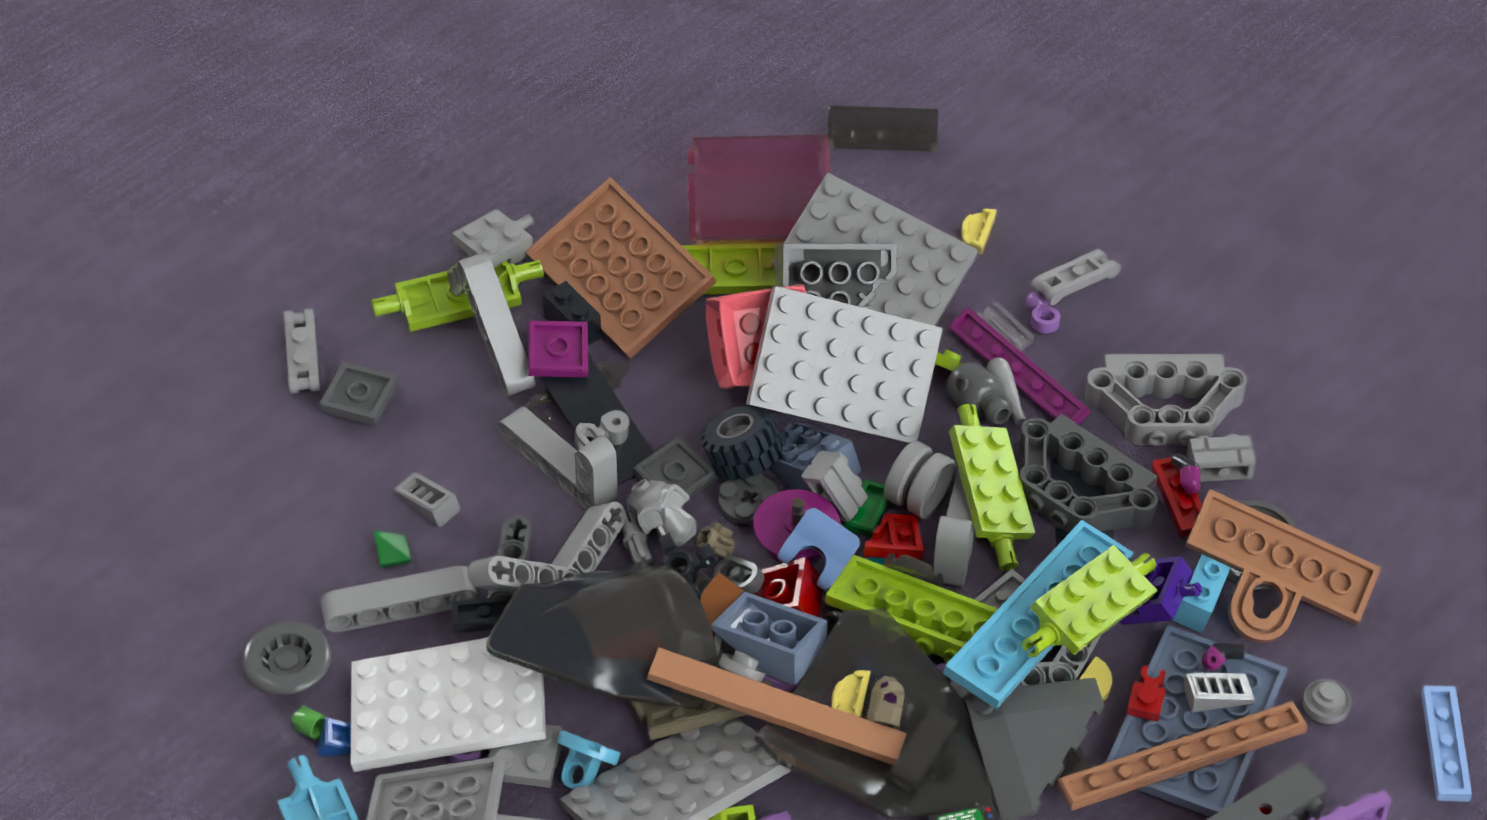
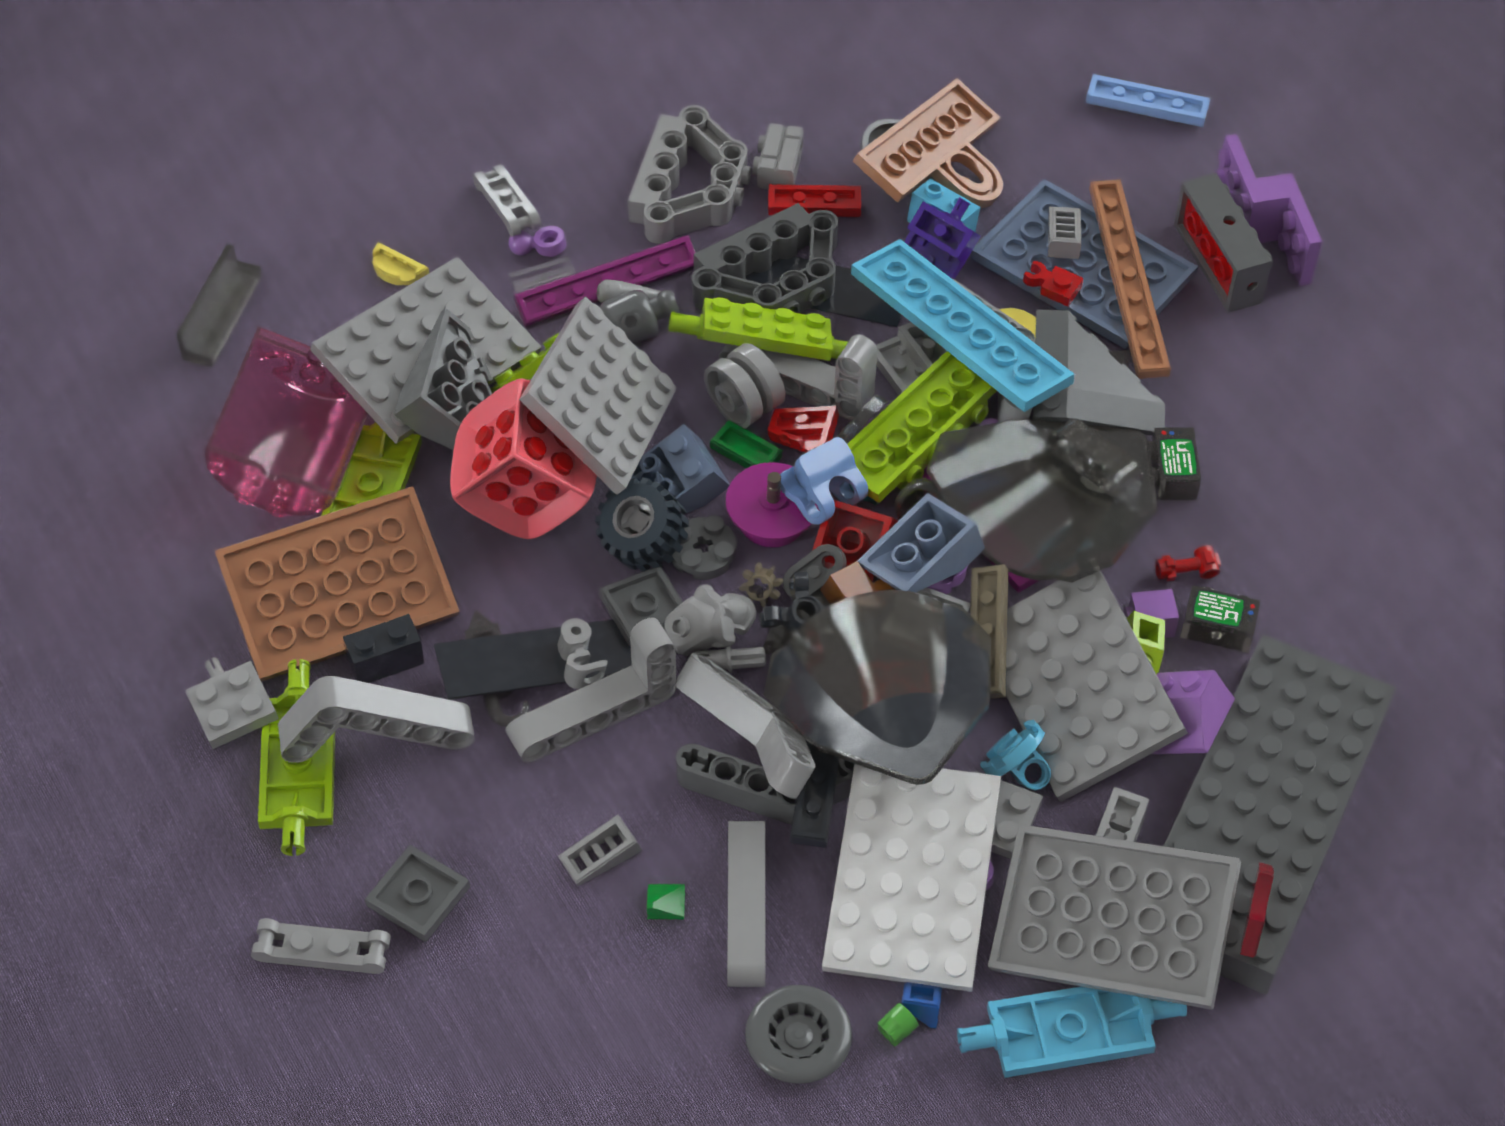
camera: 75 degrees left, 5 degrees up
(558, 348) = (450, 662): magenta plate -> none
(742, 665) = (963, 583): light grey plate -> none
(776, 706) = (1022, 563): nougat tile -> none
(836, 483) = (728, 452): light grey brick -> none
(851, 693) = (1018, 505): light yellow tile -> none
(886, 703) = (1034, 475): dark tan rock -> none
(1090, 601) = (972, 276): lime plate -> none
(1189, 473) = (801, 177): magenta arm -> none
(1220, 652) = (1020, 216): arm -> none
(1326, 701) = (1084, 165): light grey plate -> none

